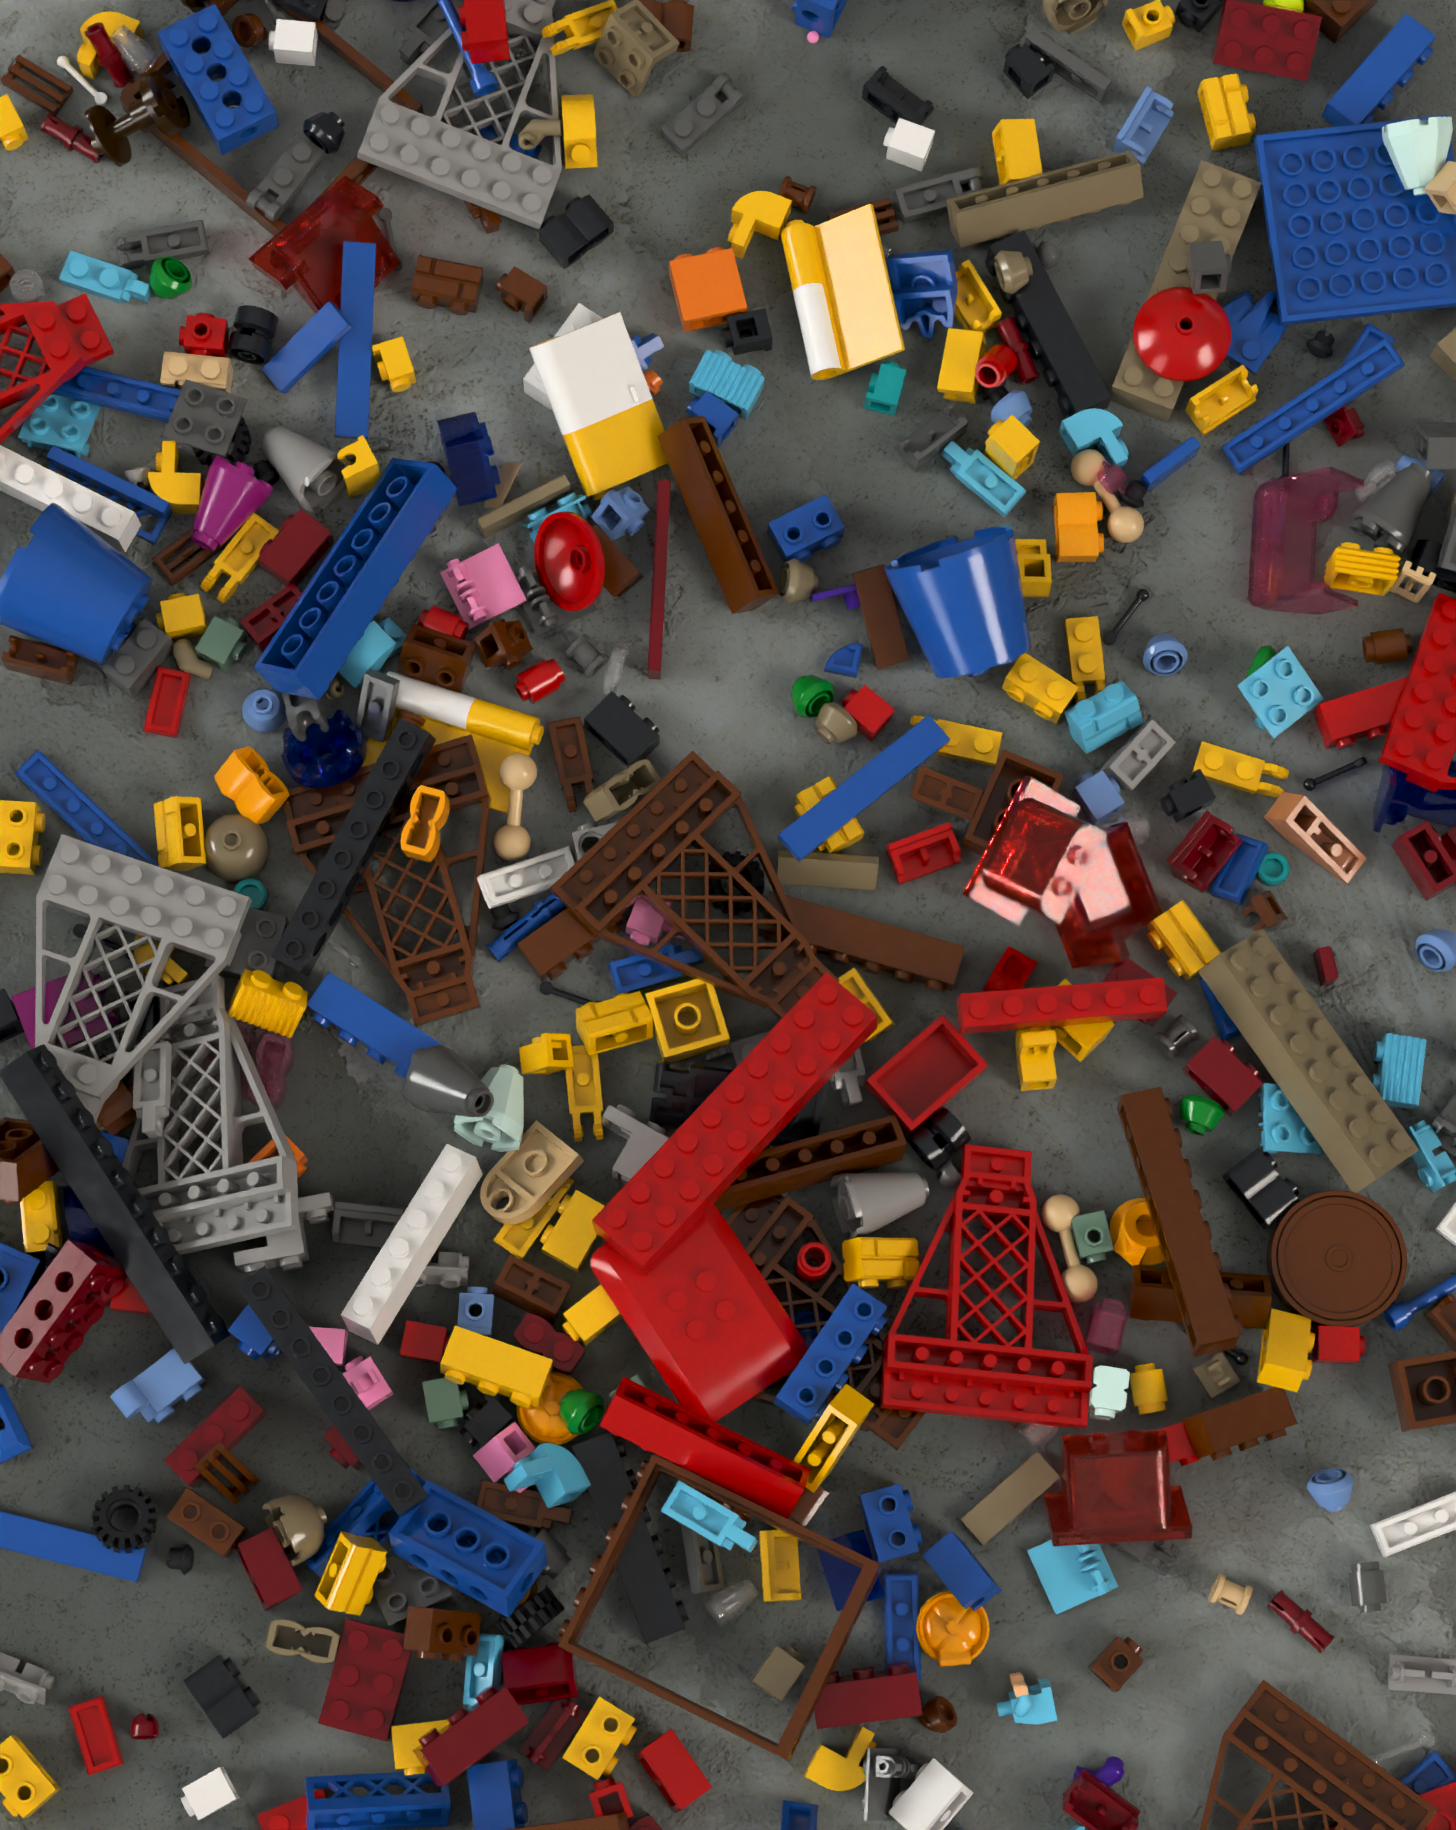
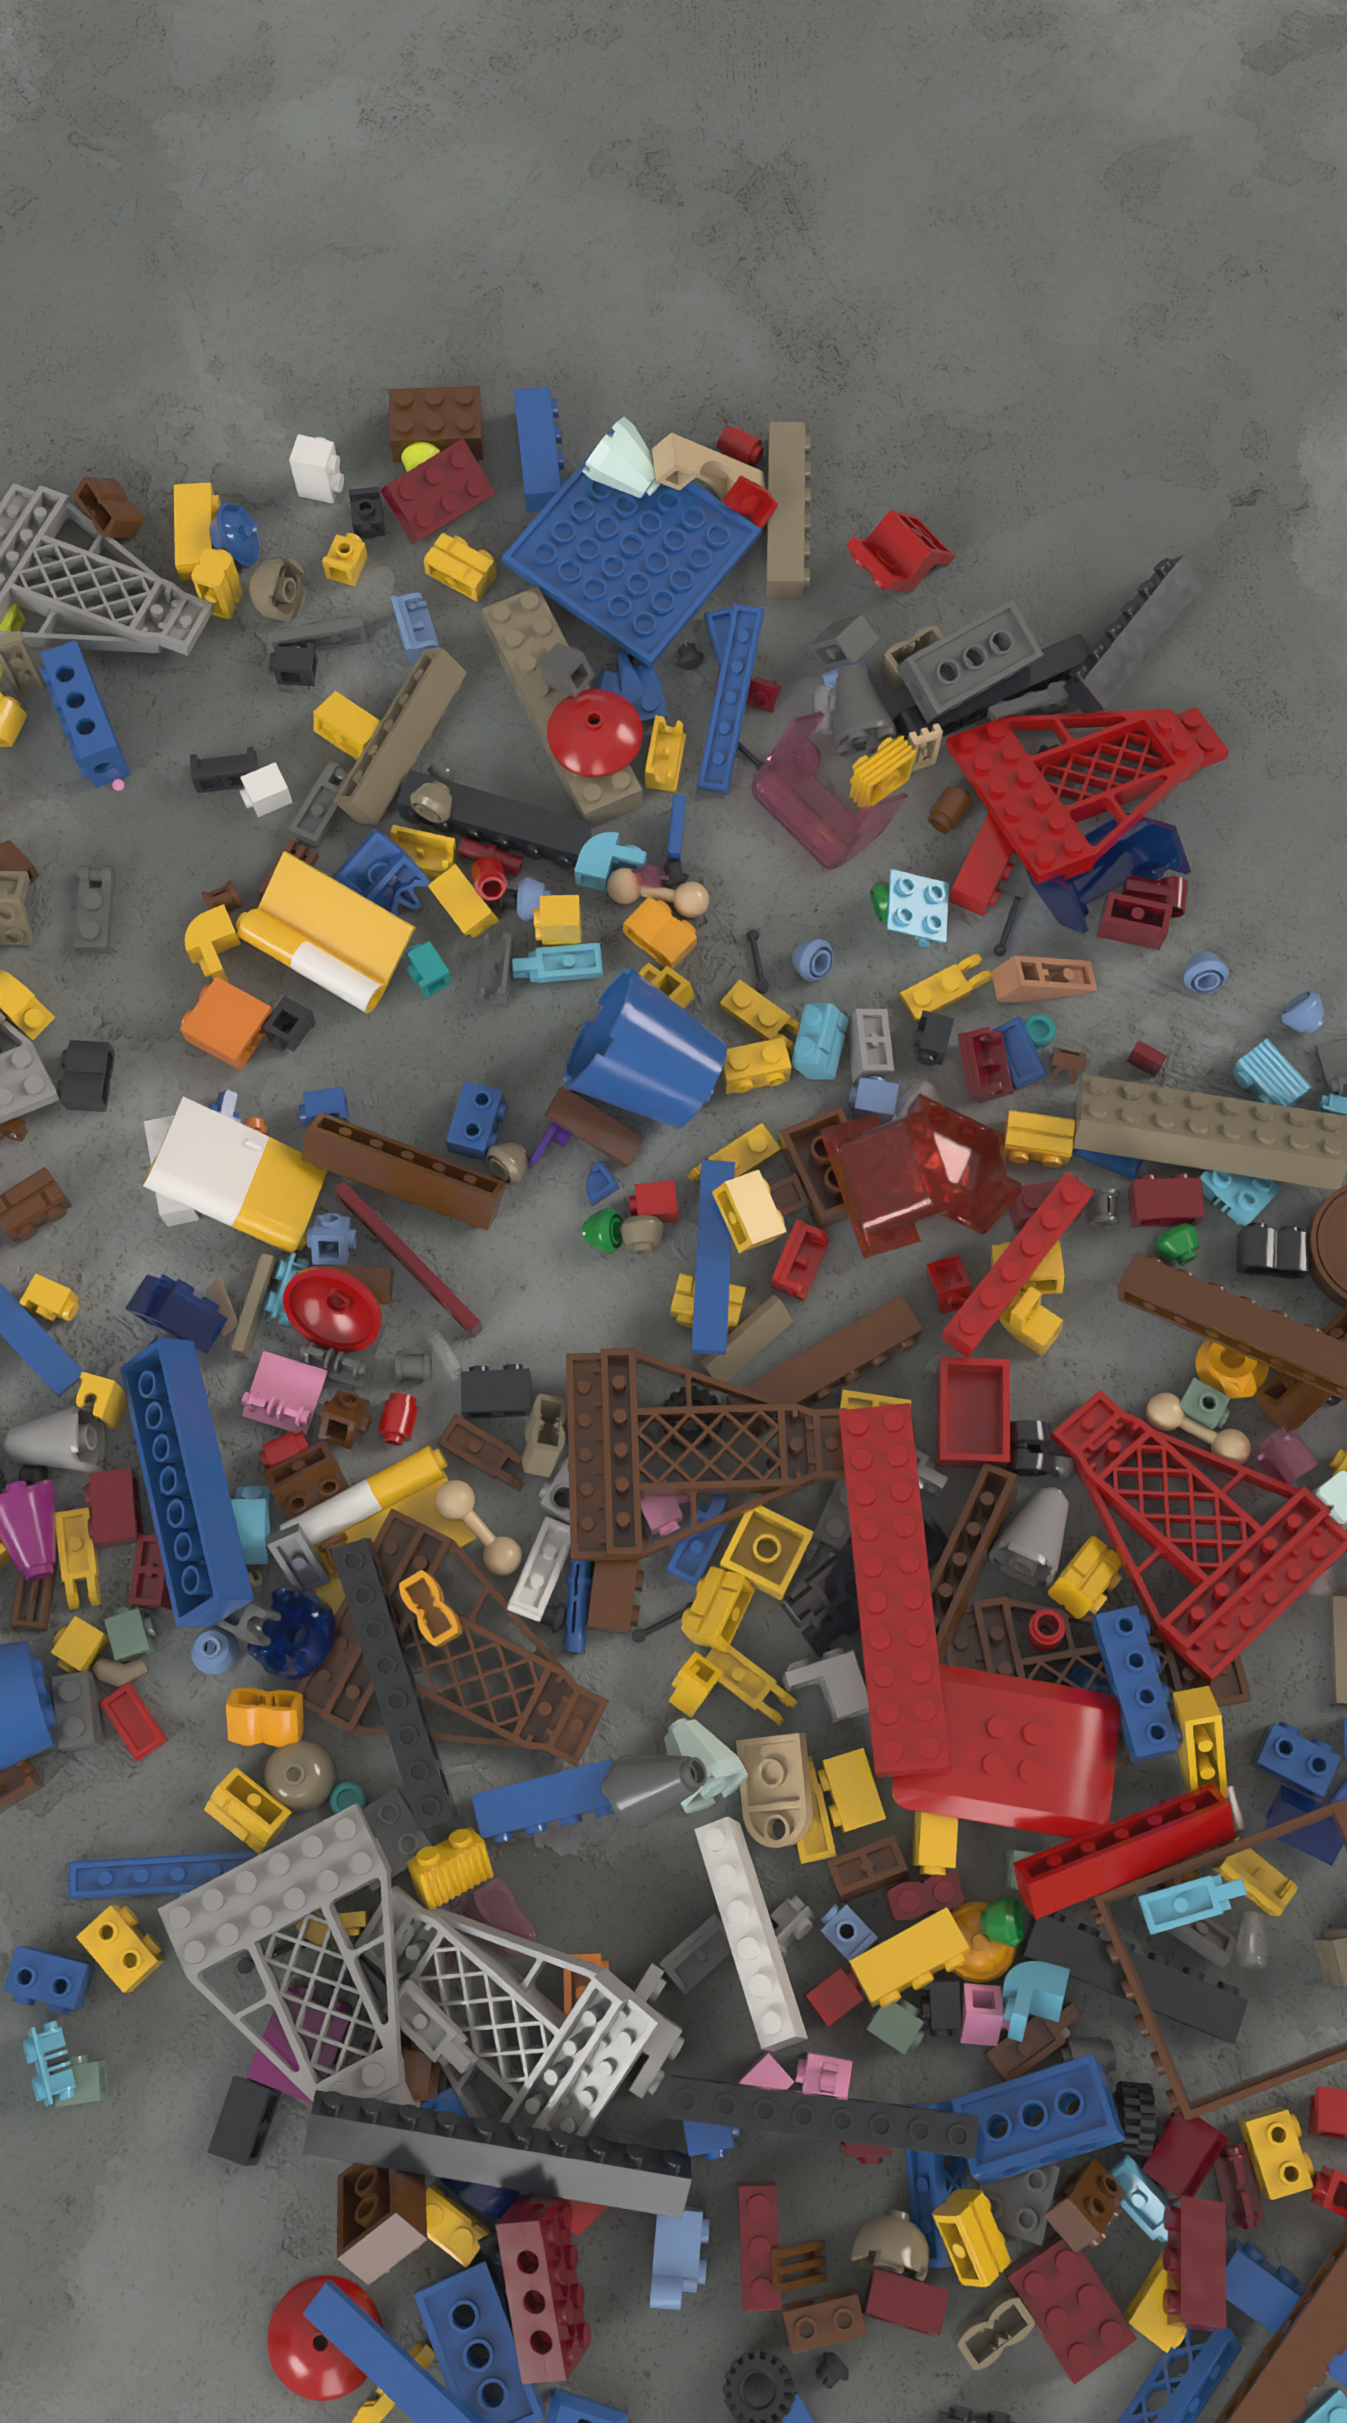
camera: 40 degrees left, 5 degrees down
(522, 293) = (92, 1156): reddish brown brick -> none
(728, 382) = (309, 1072): medium azure brick -> none
(919, 781) = (749, 1211): none -> yellow brick

